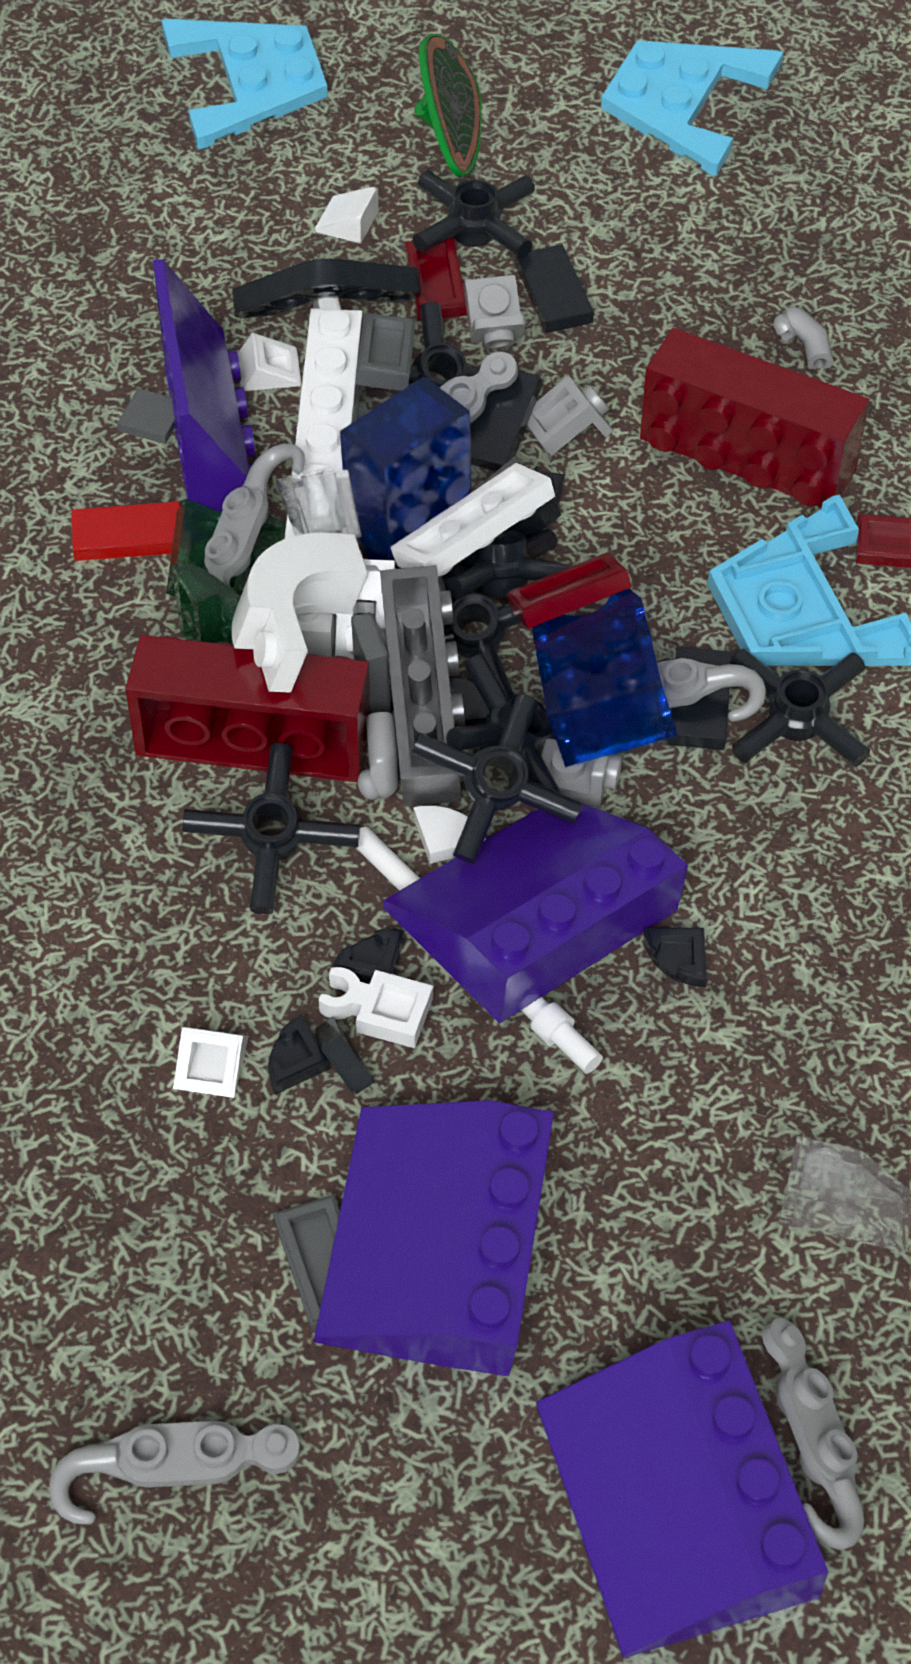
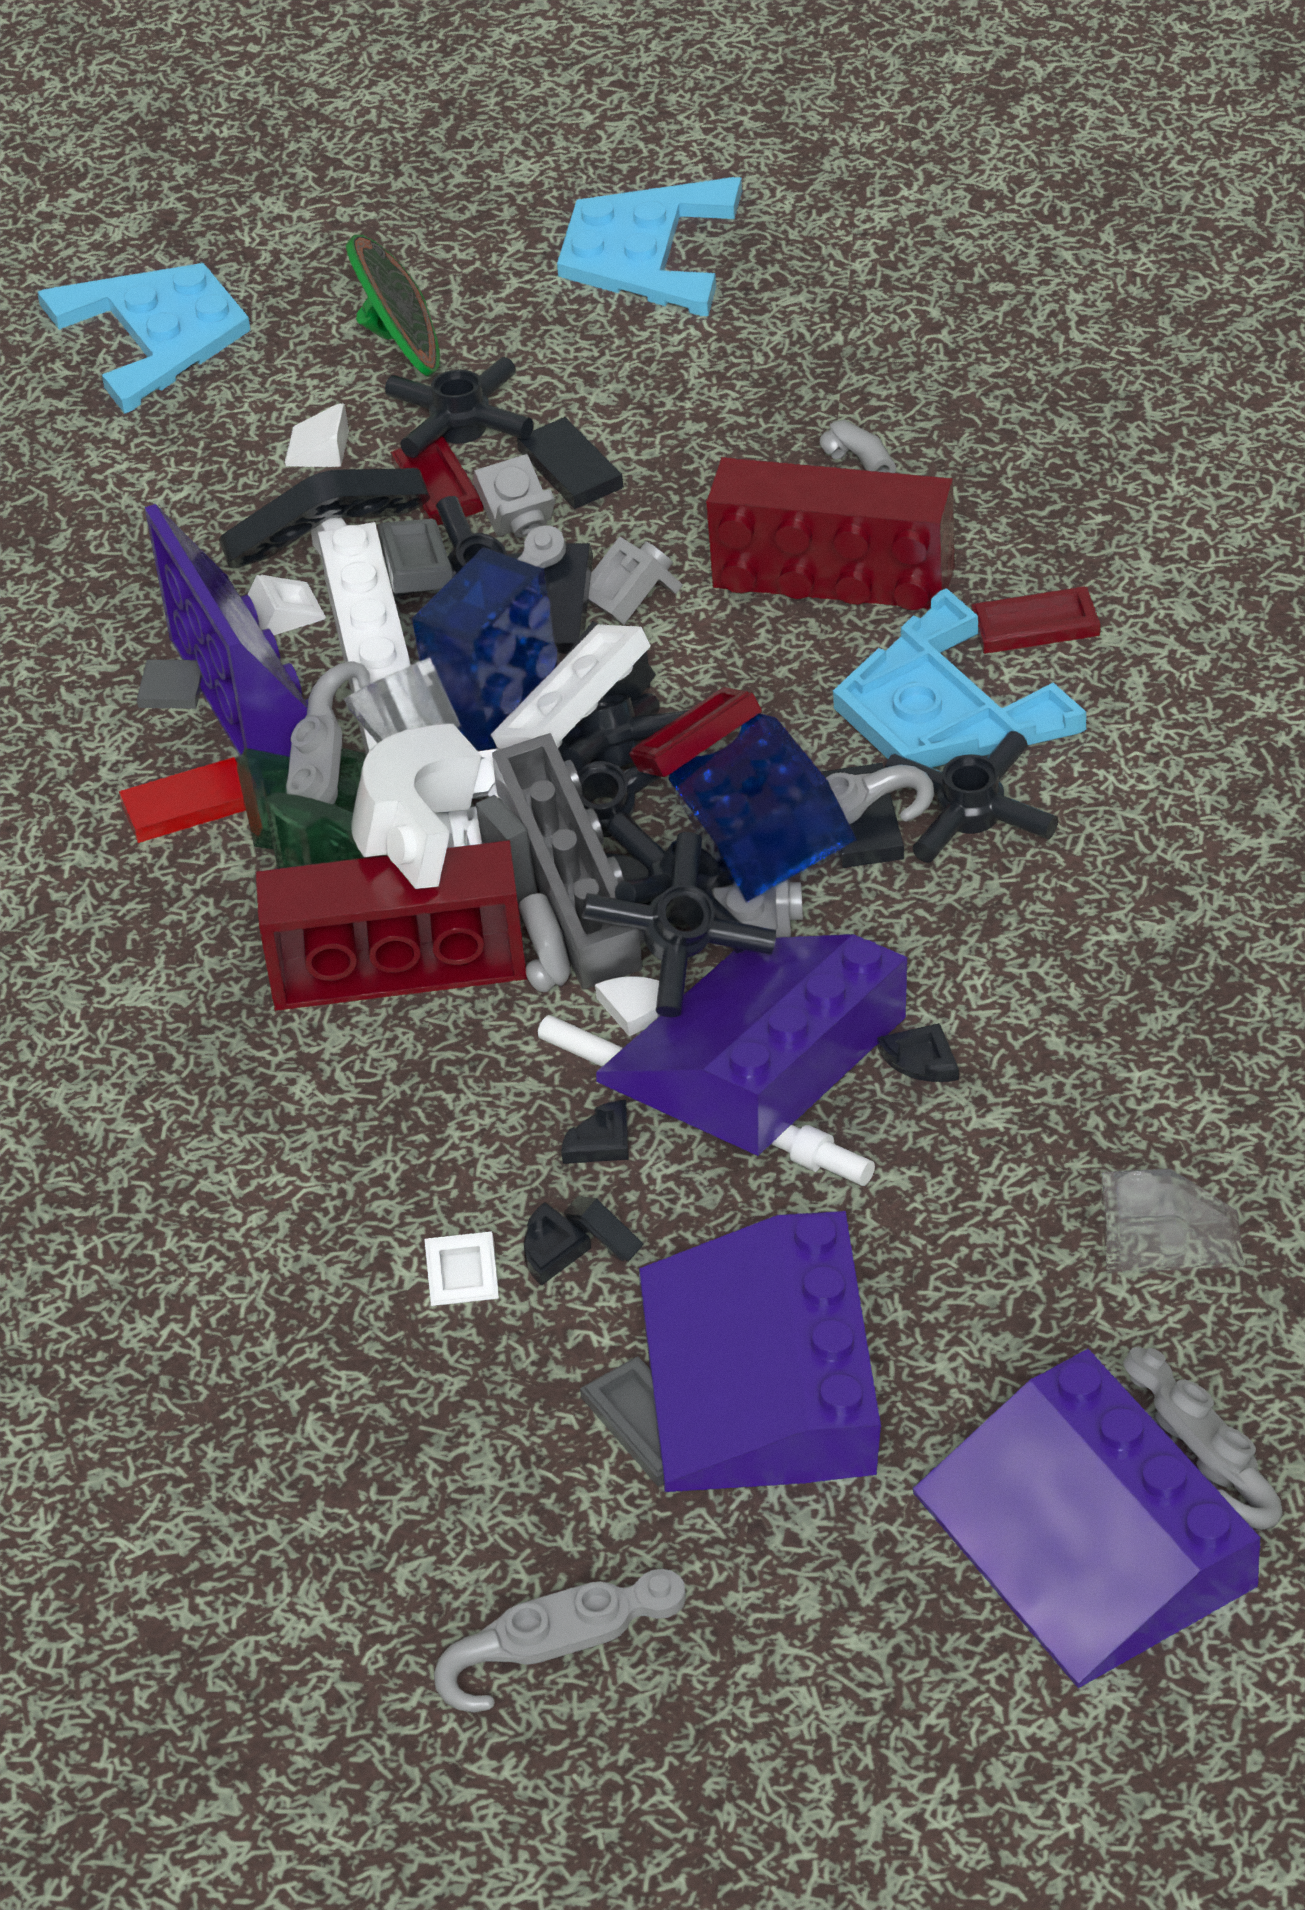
camera: 10 degrees left, 10 degrees down
(266, 807) = (455, 1057): black bar -> none
(385, 1008) = (630, 1174): white plate -> none

